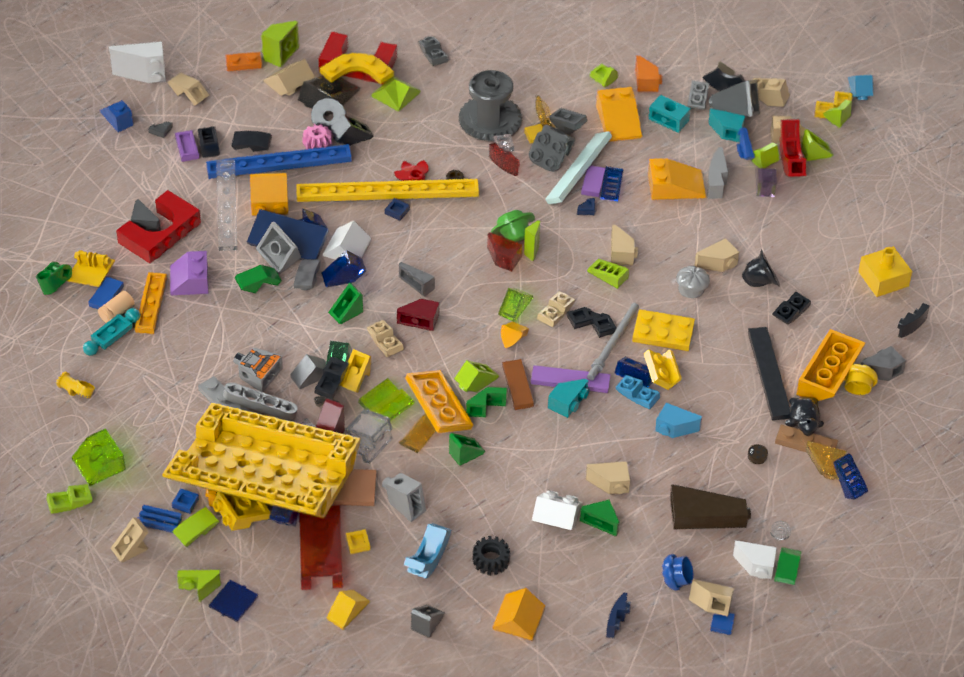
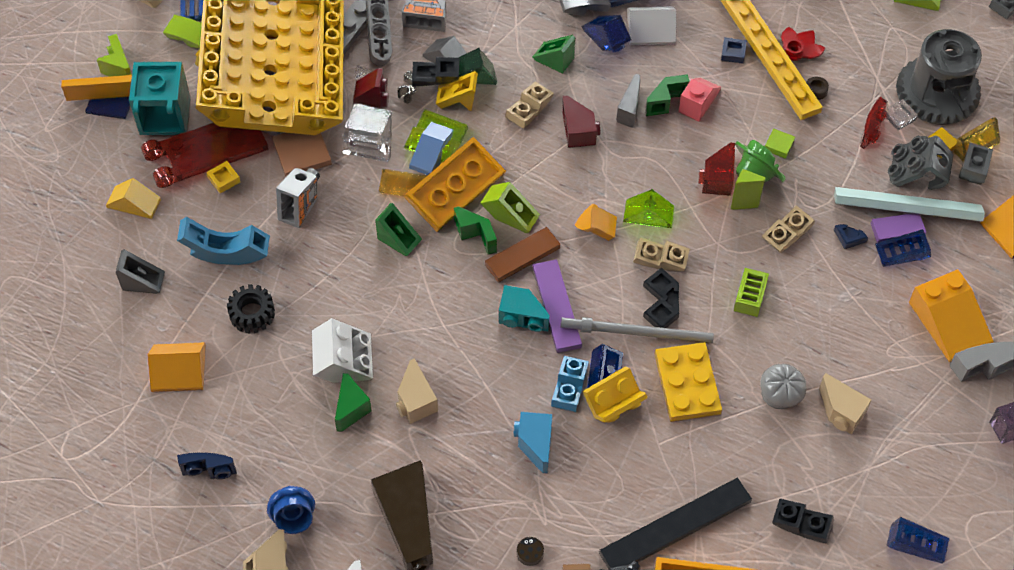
camera: 70 degrees right, 10 degrees up
(229, 590) = (96, 87): none -> light orange tile
(271, 551) = (160, 98): none -> teal container
(403, 402) = (430, 148): none -> medium blue slope
(420, 259) = (670, 87): none -> green slope
(432, 241) = (697, 98): none -> coral slope
(491, 214) = (780, 143): none -> lime tile
(567, 235) = (789, 229): none -> tan slope
(622, 247) = (796, 290): tan slope -> none
(759, 272) = (844, 465): black piece -> none
(825, 262) = (914, 548): none -> clear blue slope

